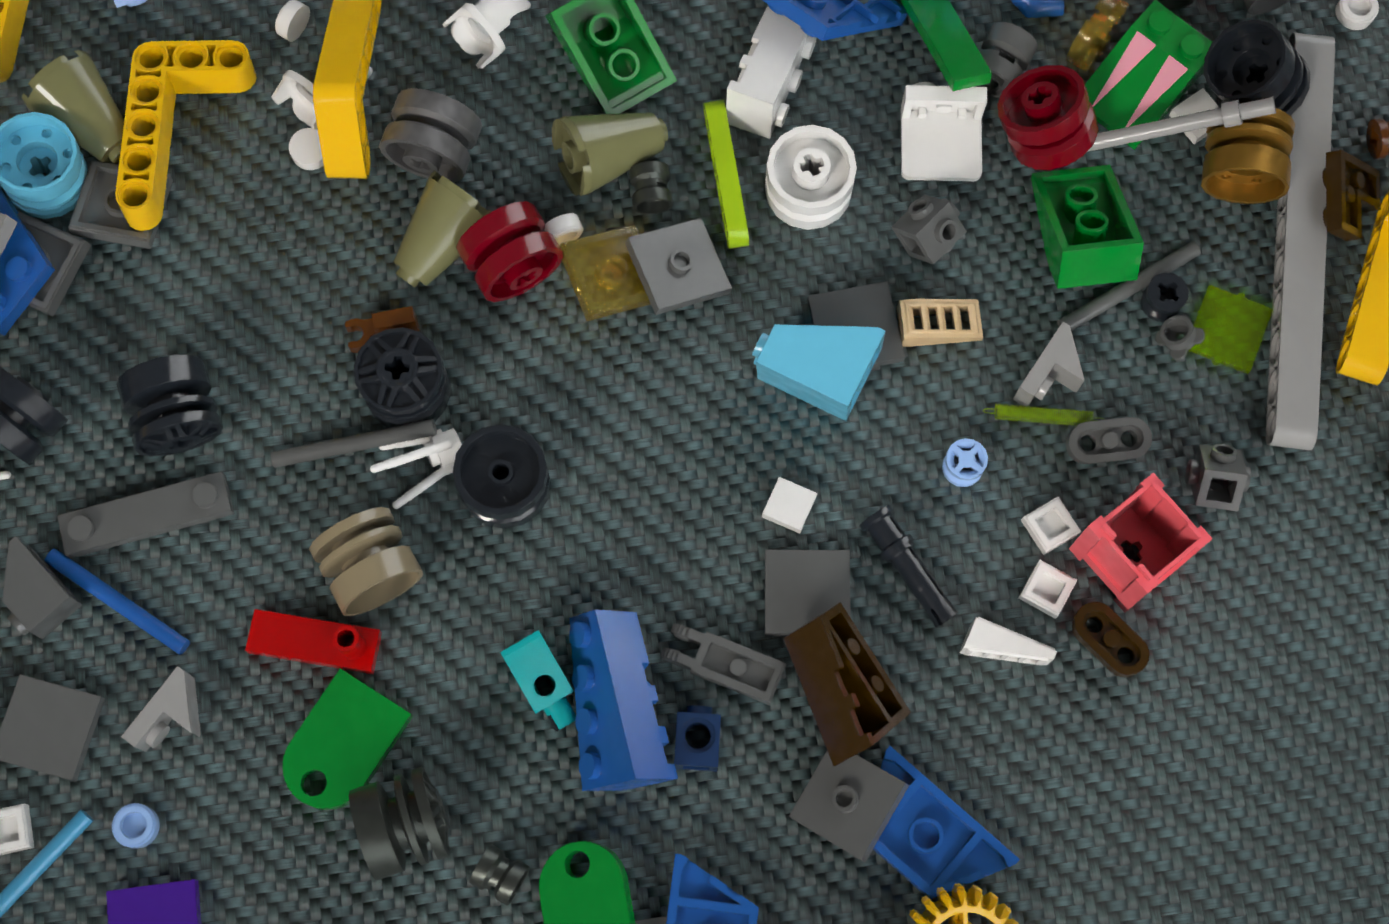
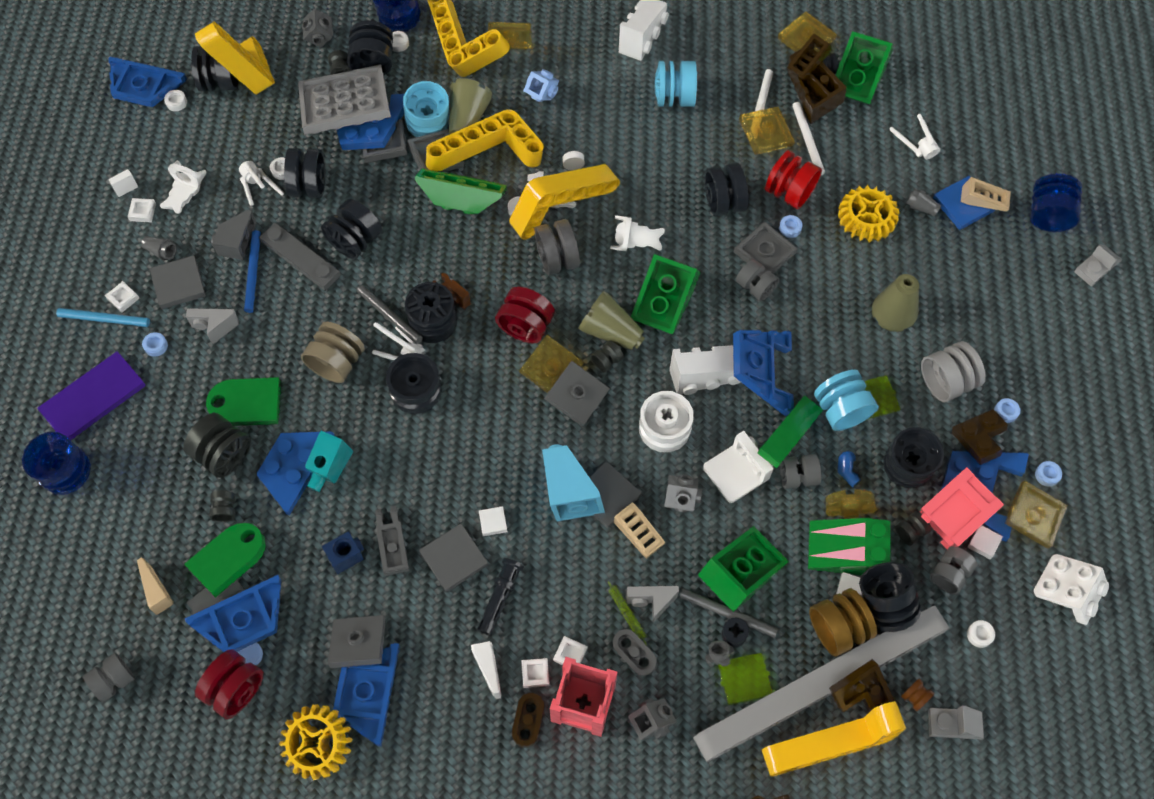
camera: 55 degrees right, 10 degrees down
(224, 207) = (459, 191): none -> wedge
(313, 641) = (285, 360): red piece -> none
(435, 230) = (521, 274): olive cone -> none
(500, 734) = (285, 469): none -> blue wing
(565, 227) = (556, 332): white tile -> none
(615, 704) = (335, 500): blue wedge -> none
(726, 174) = (638, 385): lime beam -> none
(844, 684) = (411, 598): dark brown wedge -> none
(969, 455) = (572, 583): light blue wheel -> none
(1048, 117) = (782, 509): dark red wheel -> none
(1229, 114) = (845, 589): light grey bar -> none

